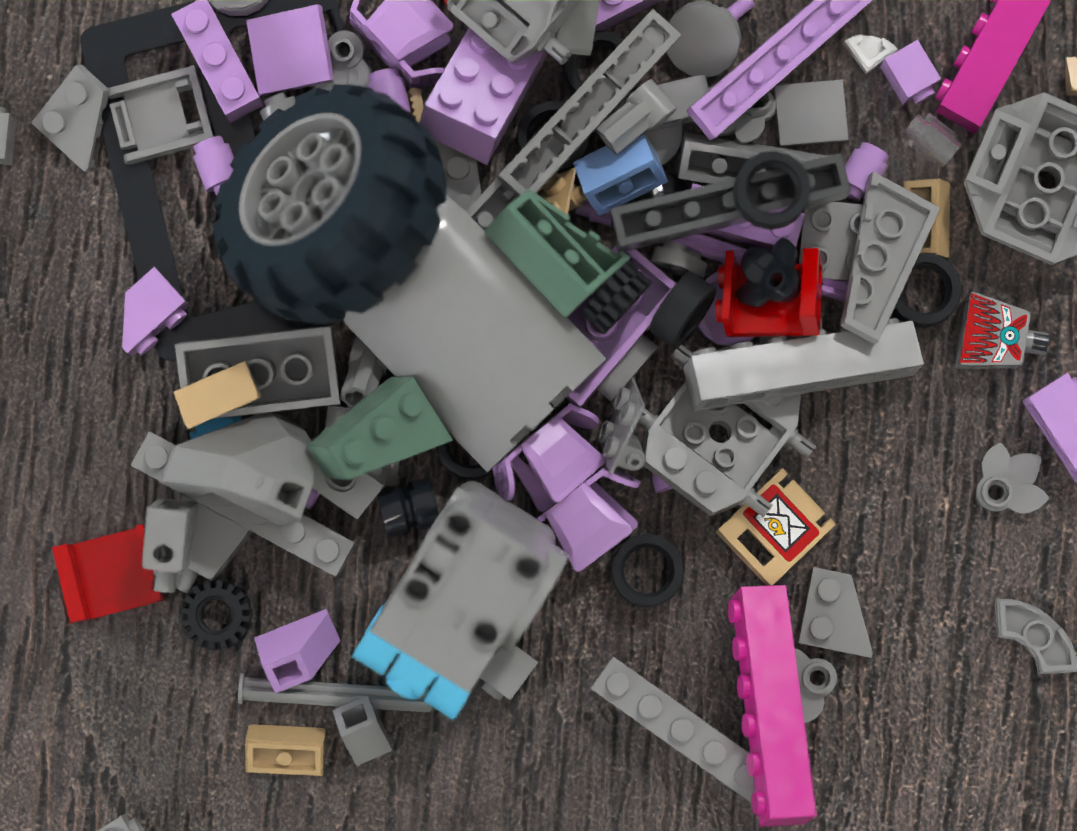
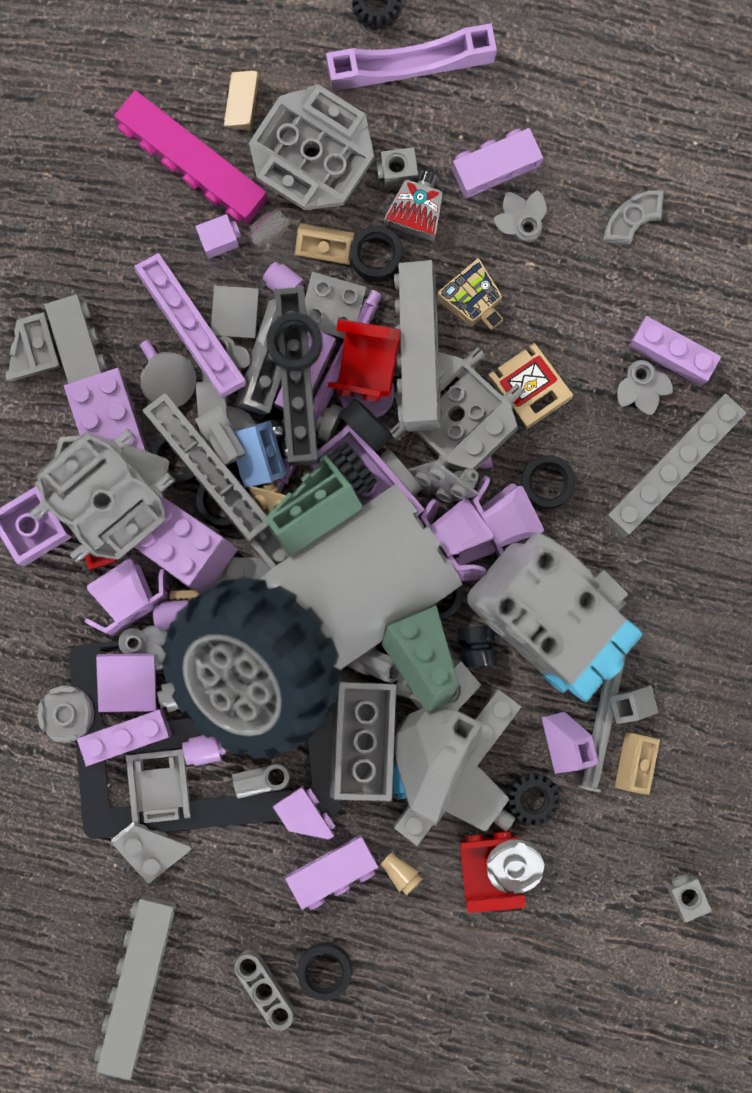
camera: 85 degrees left, 0 degrees up
(79, 361) = (332, 873): none -> lavender brick
(91, 454) = (401, 874): none -> tan cone
(122, 602) = (515, 866): none -> tile
(173, 525) = (469, 823): light grey torso -> none
(187, 245) = (258, 780): none -> light grey piece
(216, 394) = (377, 773): tan slope -> none
(765, 272) = (348, 361): black plate -> none
(772, 706) = (661, 406): dark pink brick -> none
(833, 615) = (598, 355): light grey wing -> none
(855, 716) = (674, 351): none -> lavender brick
(869, 50) = (196, 263): white tile -> none
(885, 430) = (472, 296): none -> torso
(886, 248) = (345, 272): light grey wing -> none
(1045, 317) = (406, 158): none -> light grey brick

